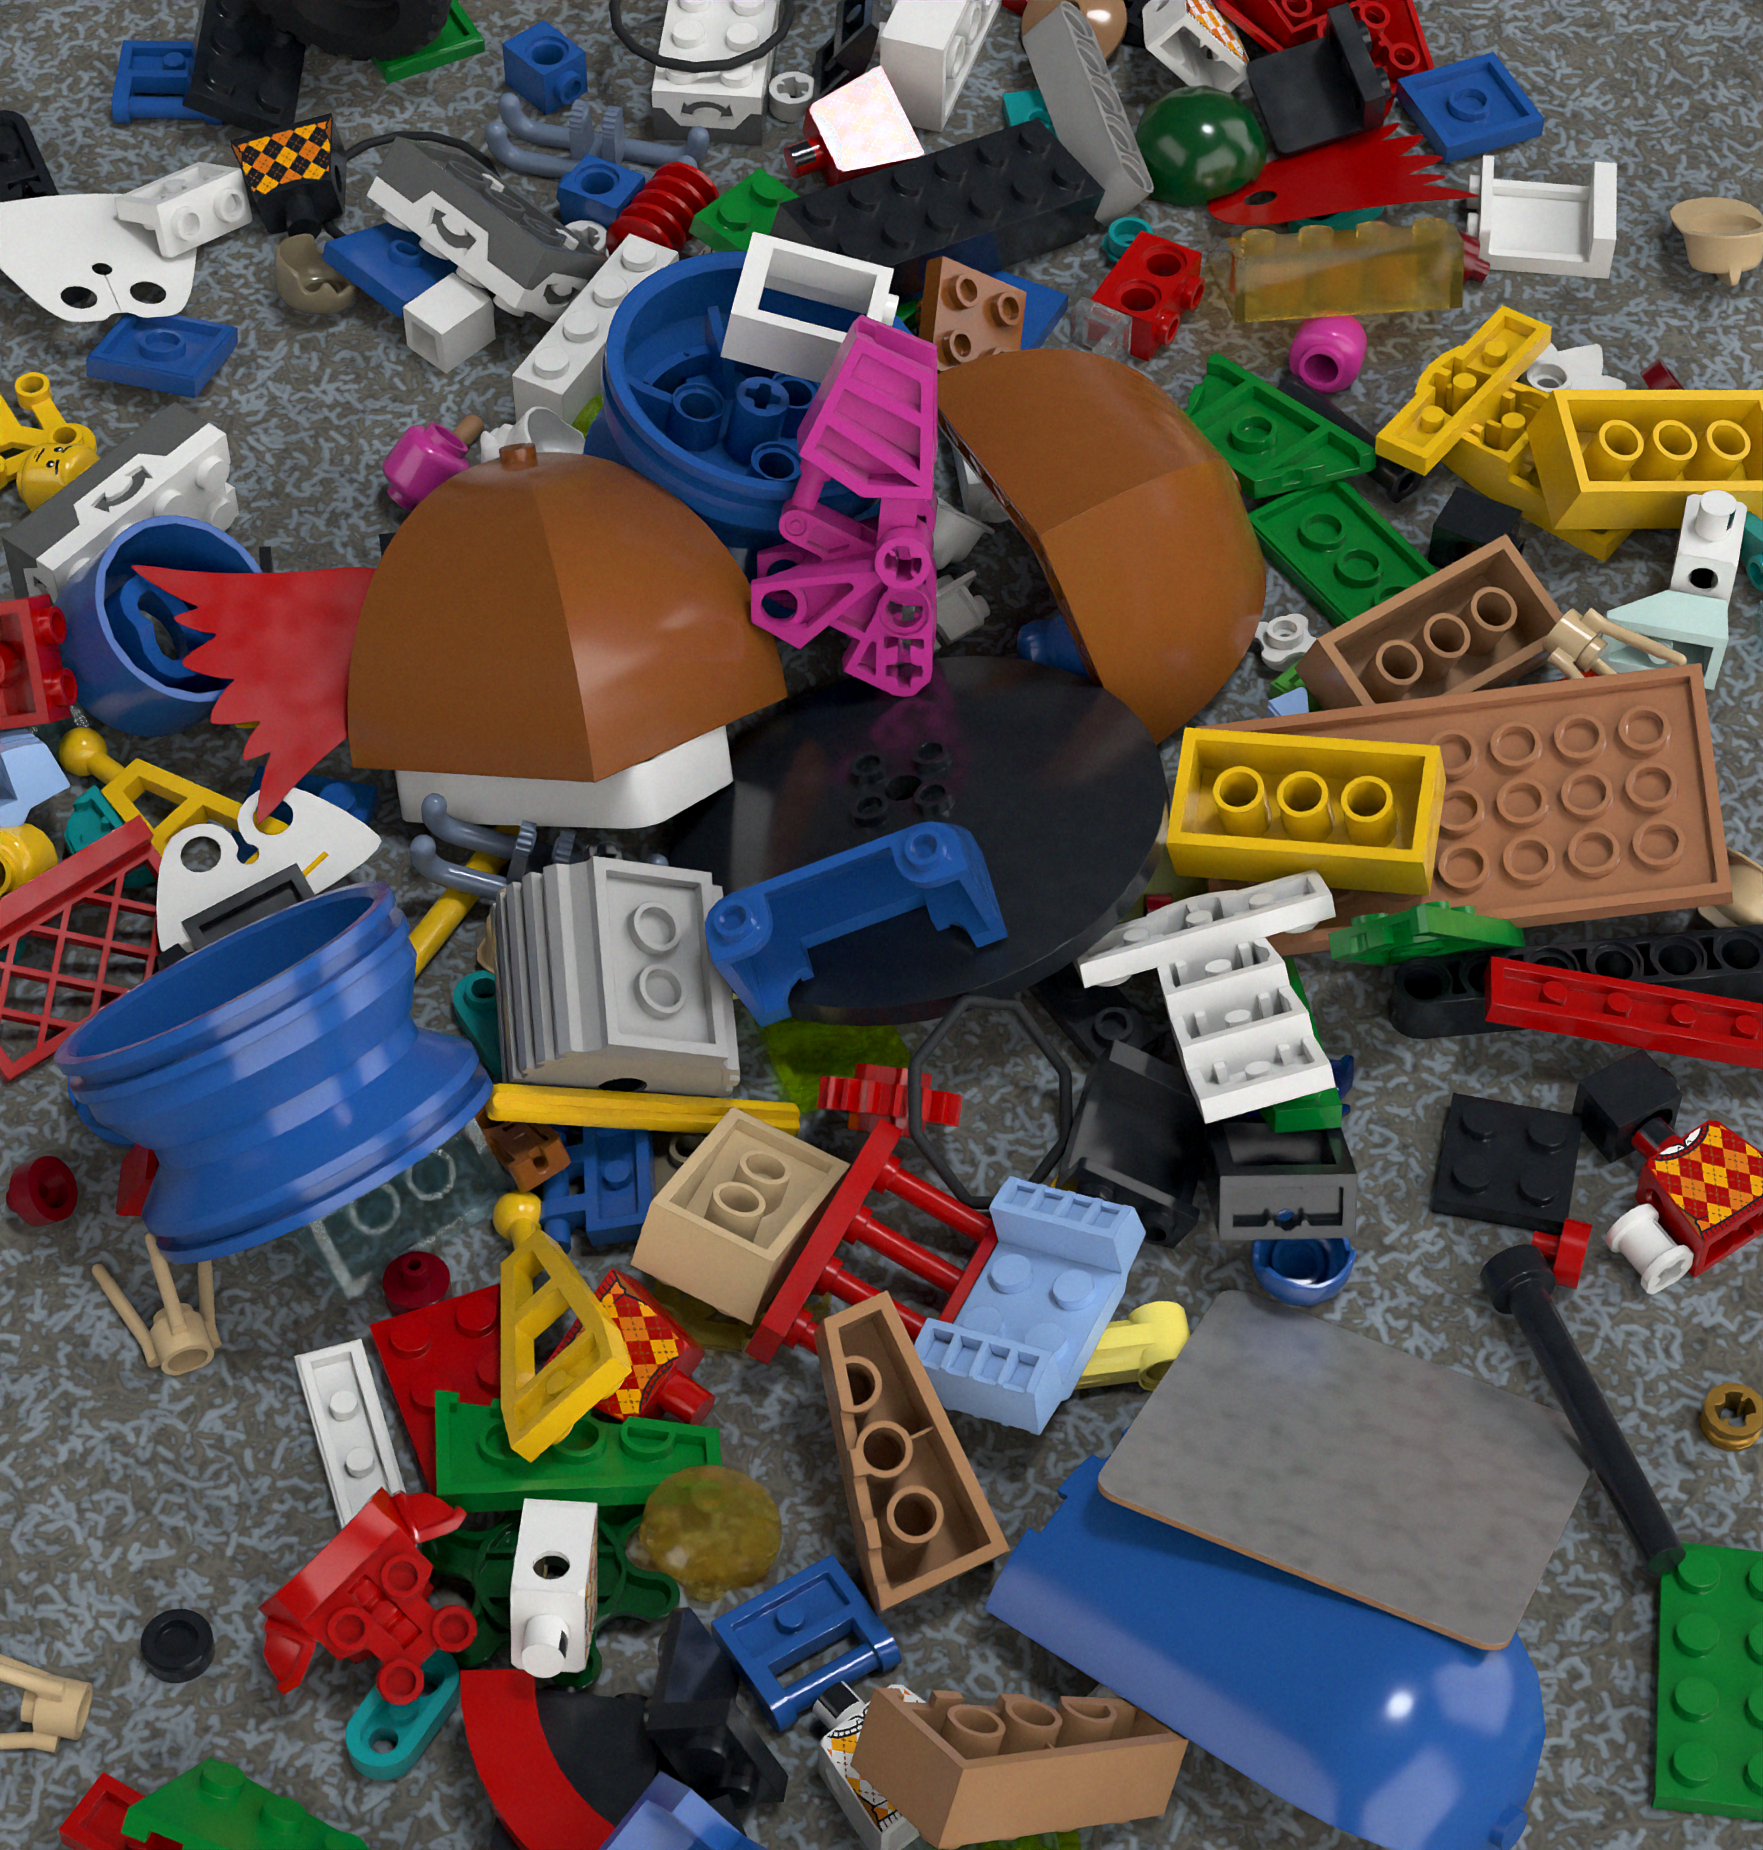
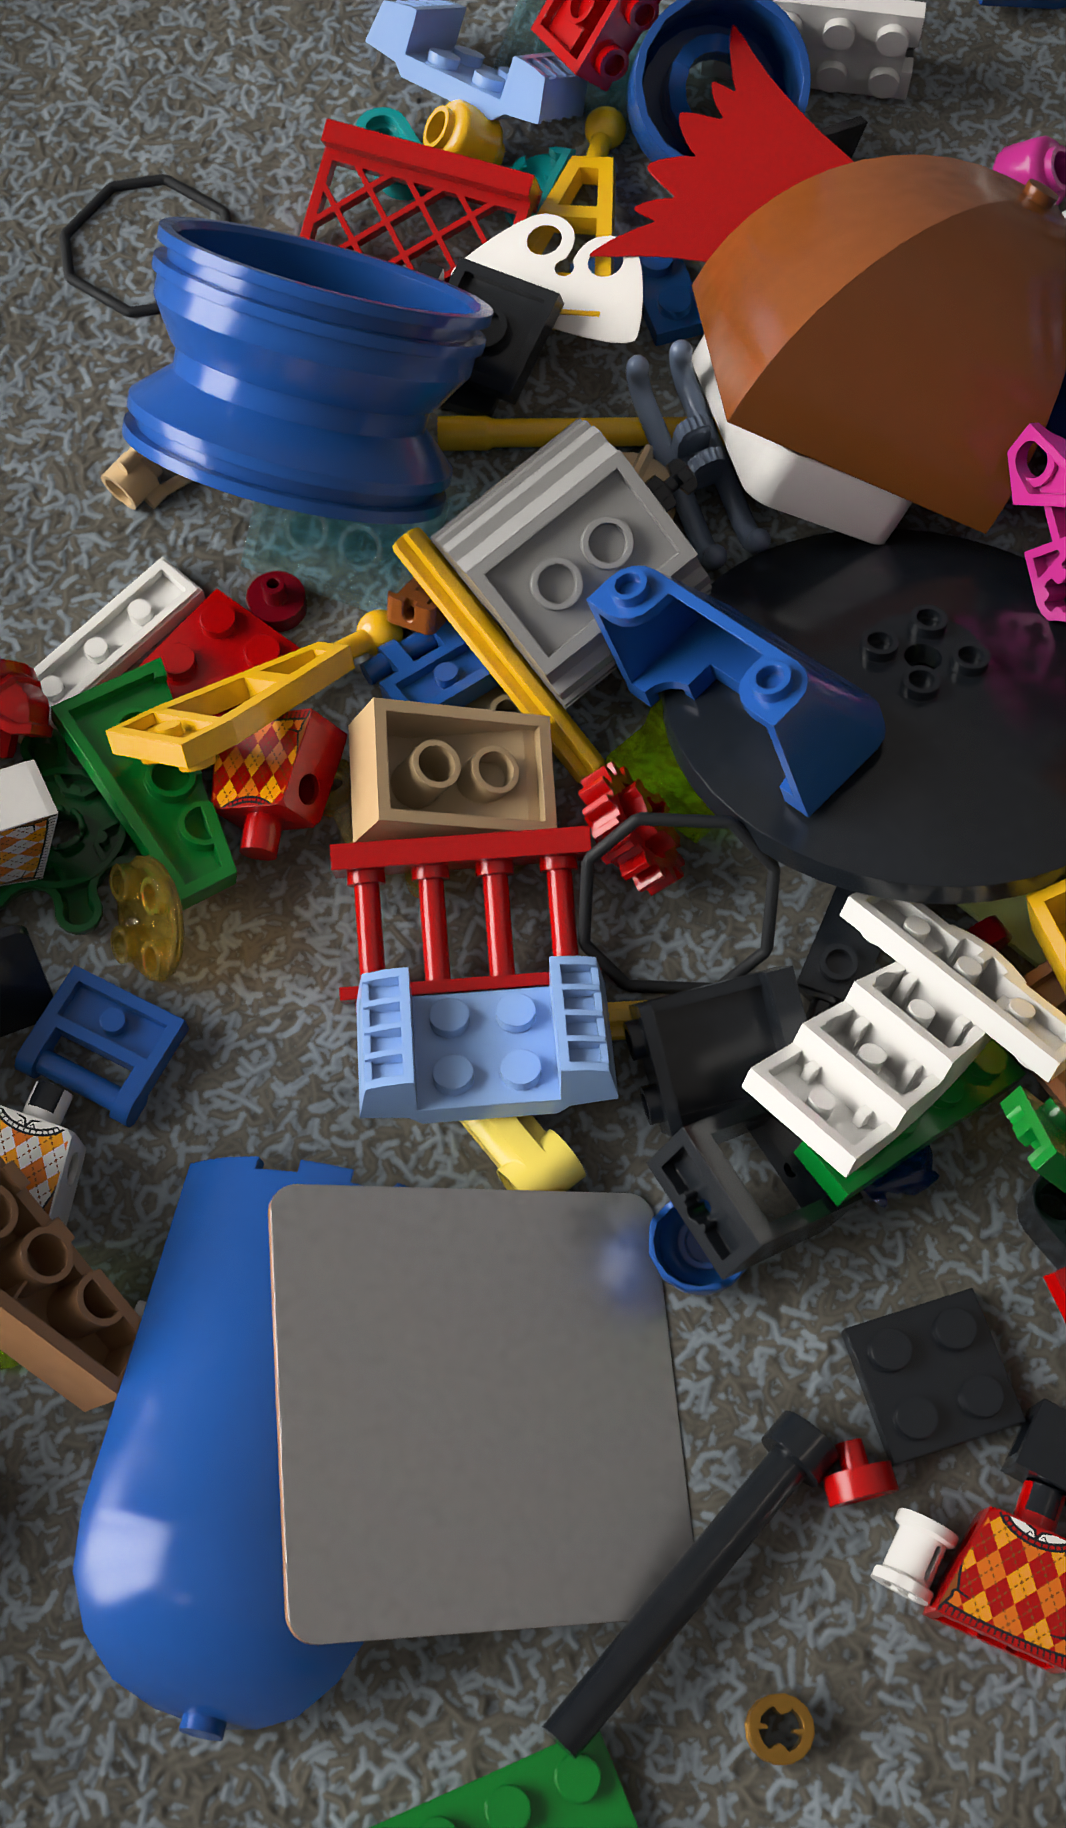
camera: 60 degrees right, 15 degrees up
(901, 1464) = (268, 1022): medium nougat wedge -> none

